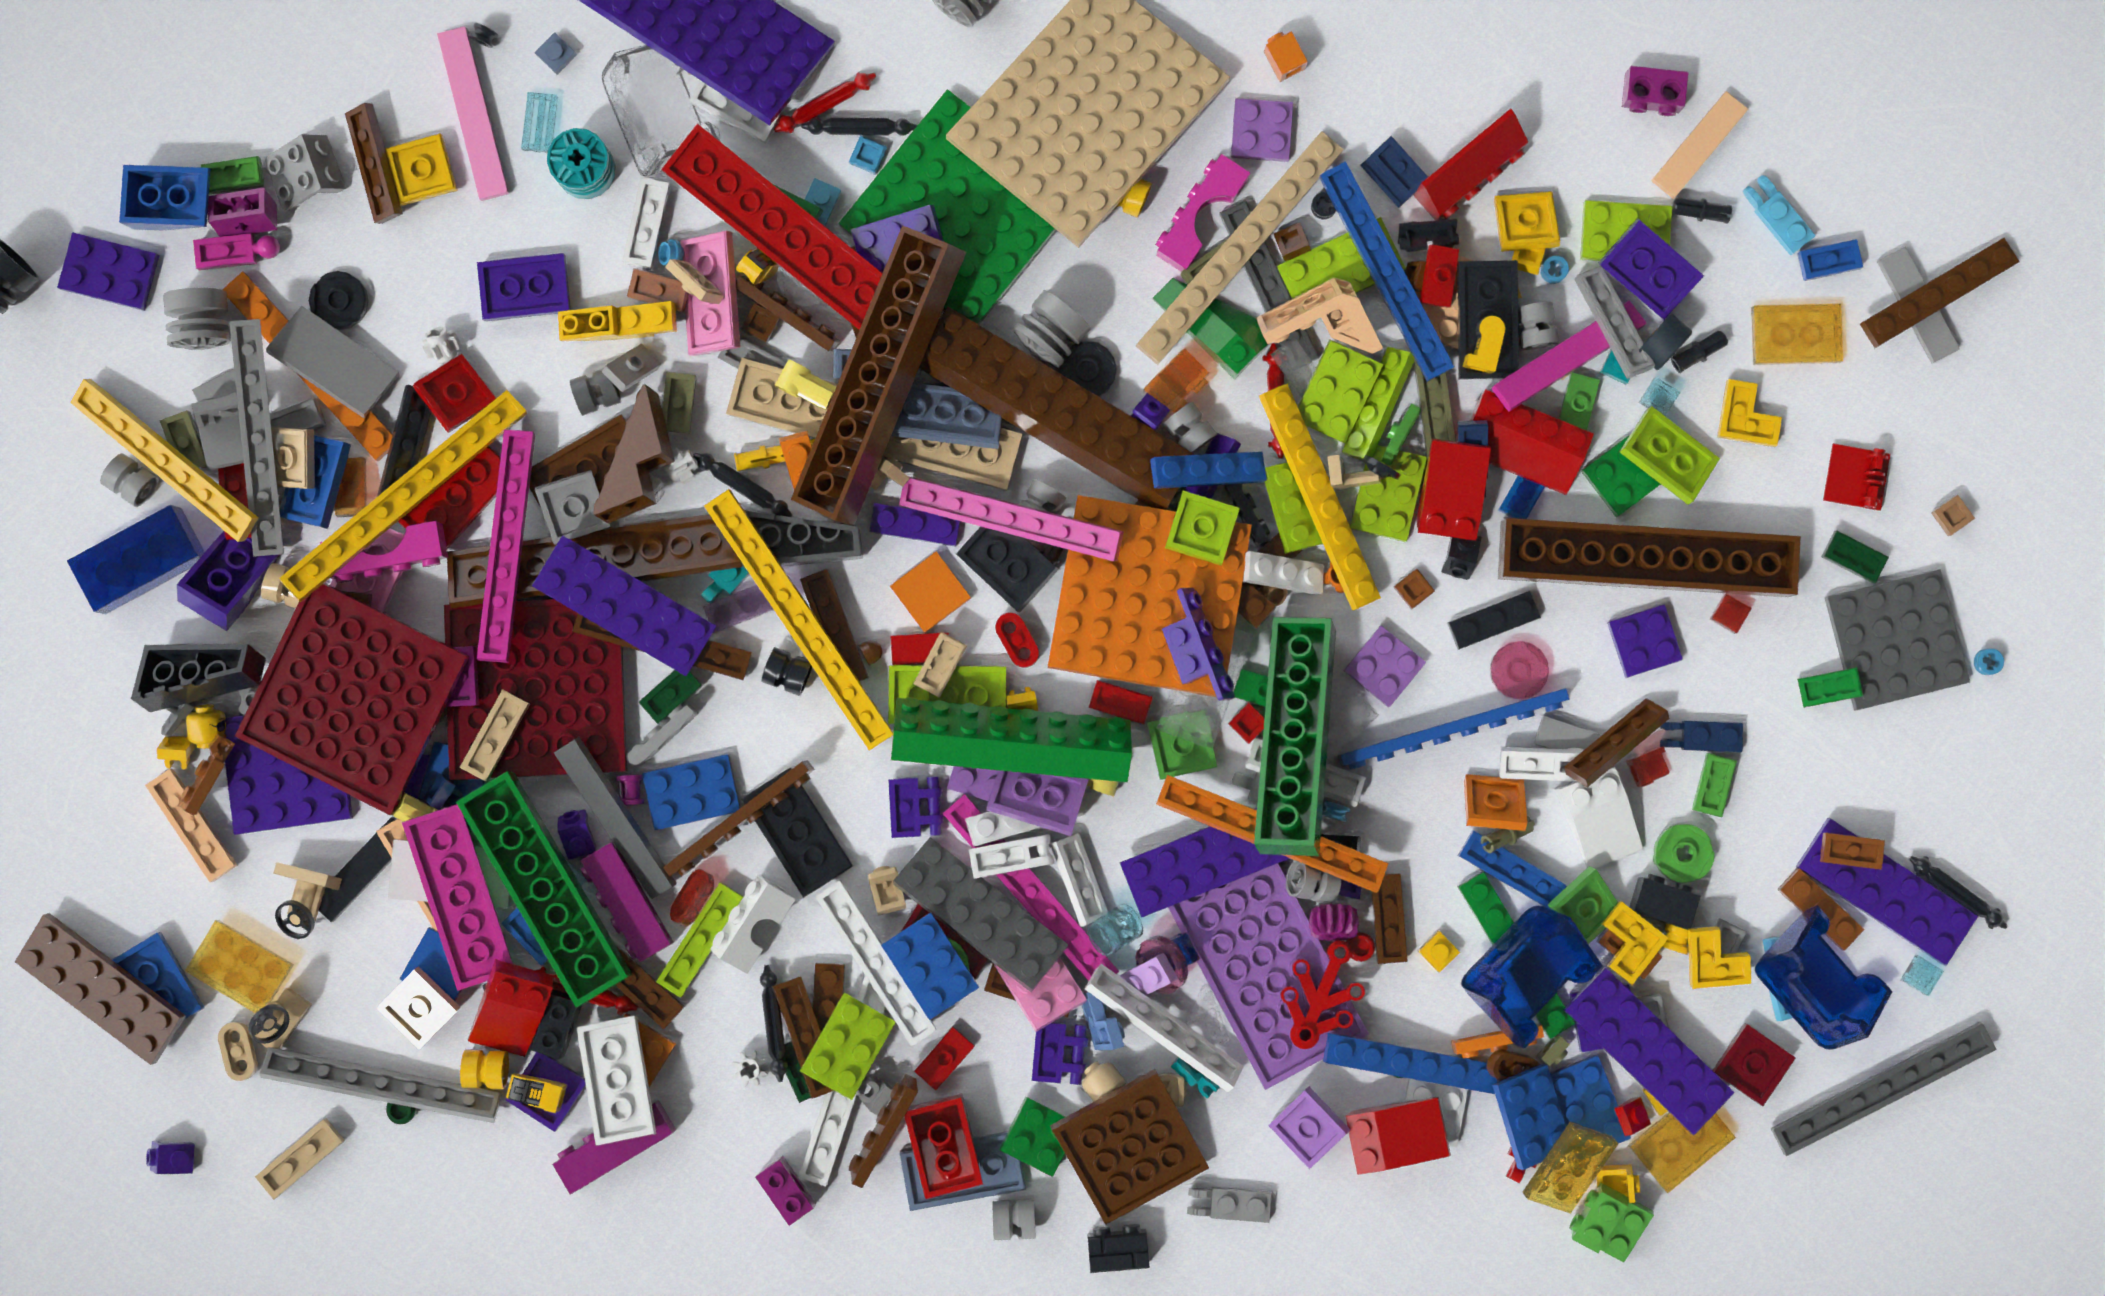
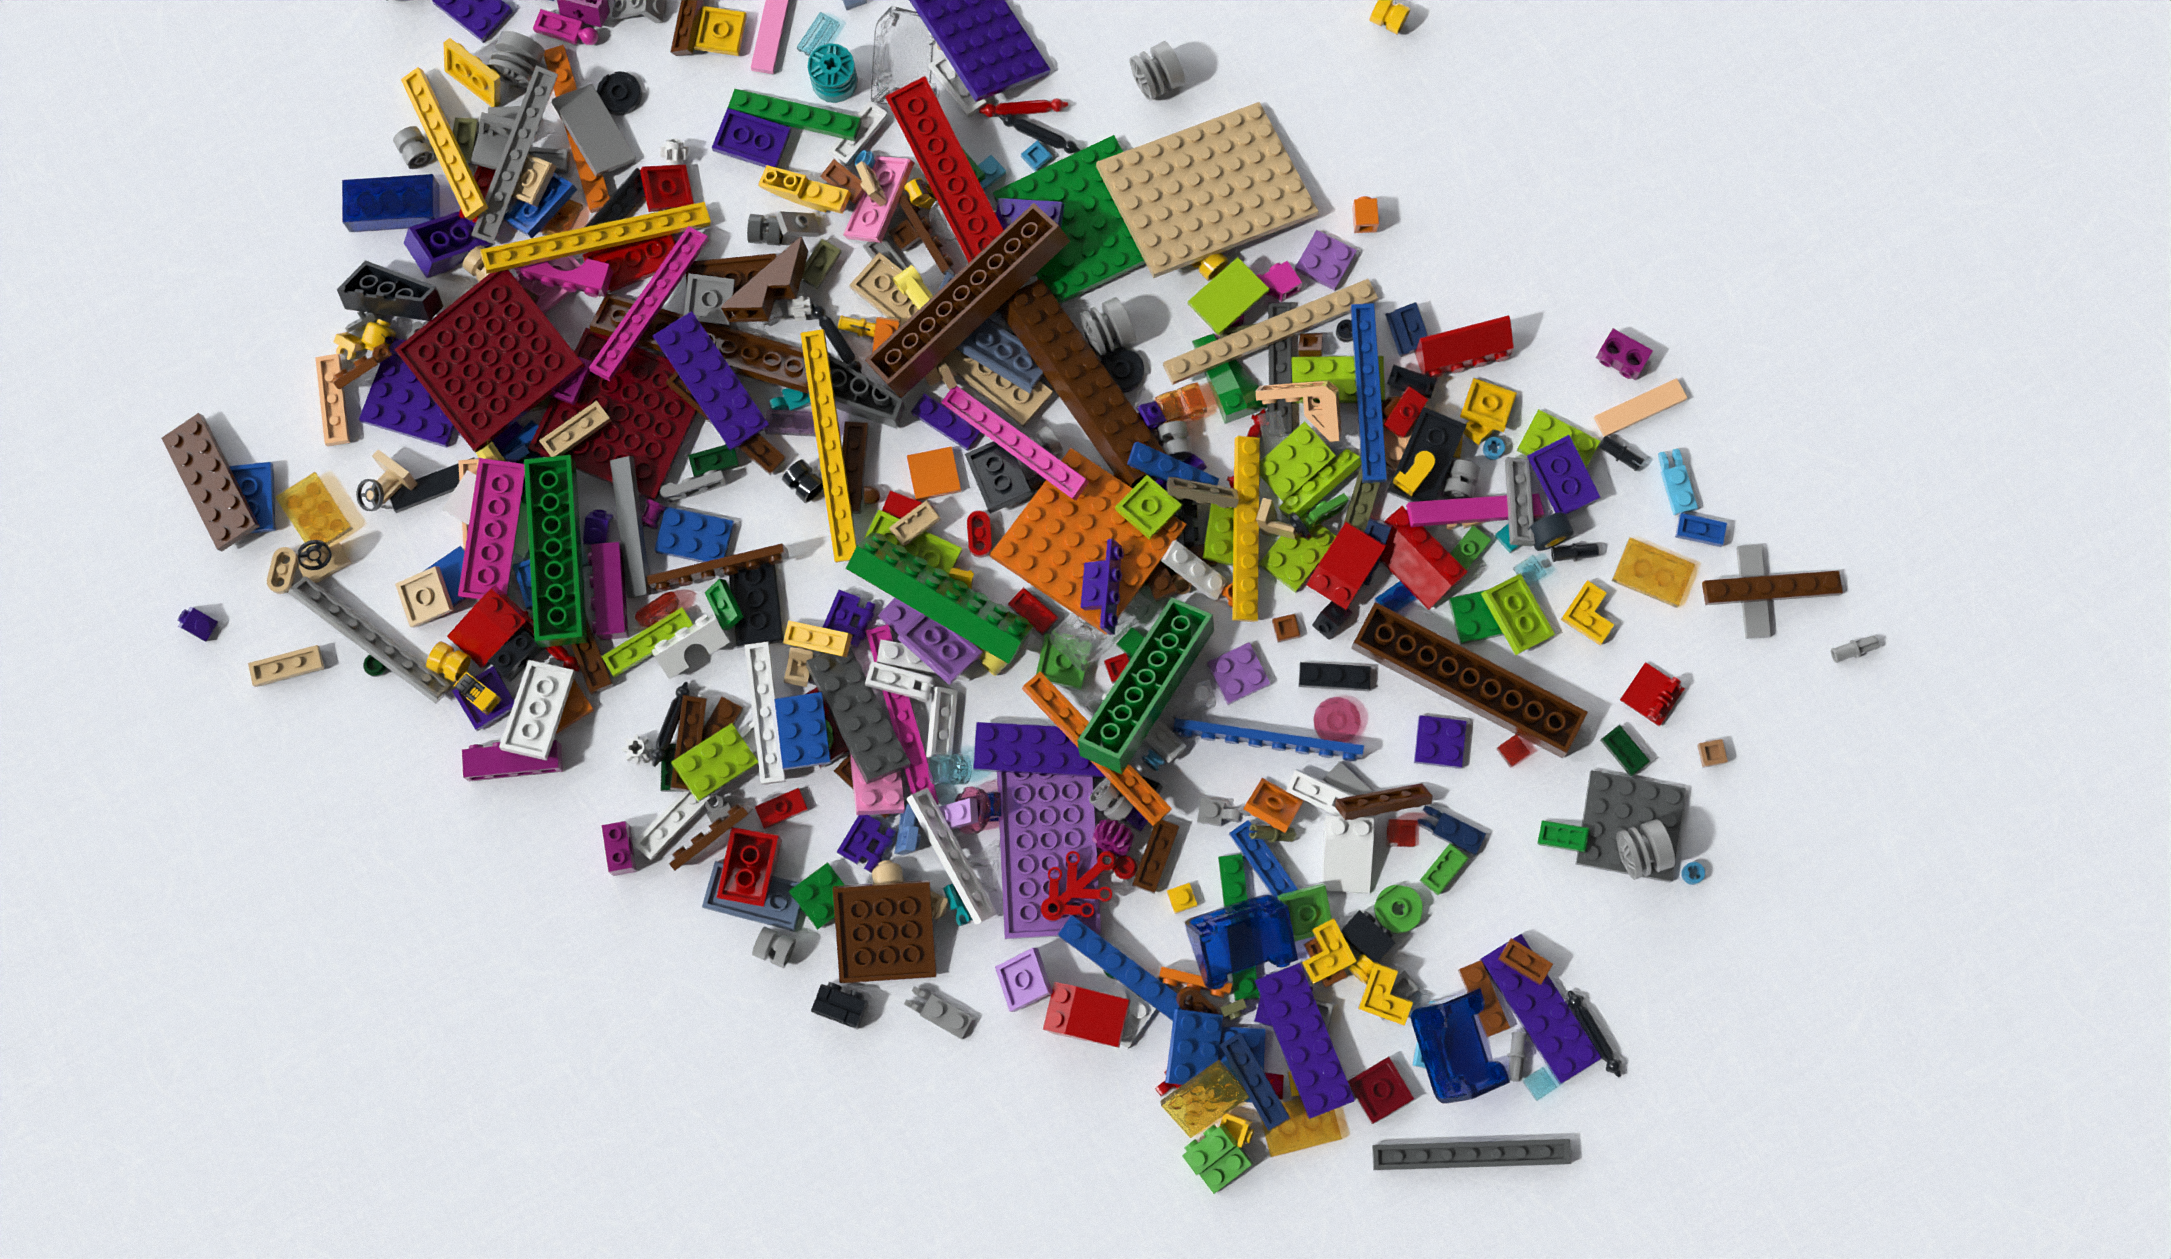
camera: 25 degrees right, 10 degrees down
(153, 358) = (472, 73): none -> yellow plate
(561, 234) = (796, 115): none -> green plate
(766, 858) = (724, 604): none -> green plate
(893, 849) = (817, 639): none -> yellow plate
(1174, 229) = (1228, 296): none -> lime tile
(1254, 481) = (1202, 492): none -> dark tan plate
(1429, 839) = (1213, 812): none -> light grey plate
(1617, 1124) = (1255, 1081): none -> dark blue plate
(1885, 957) = (1517, 1056): none -> light grey axle
(1933, 665) = (1643, 850): none -> light grey wheel
(2059, 320) = (1854, 648): none -> light grey axle

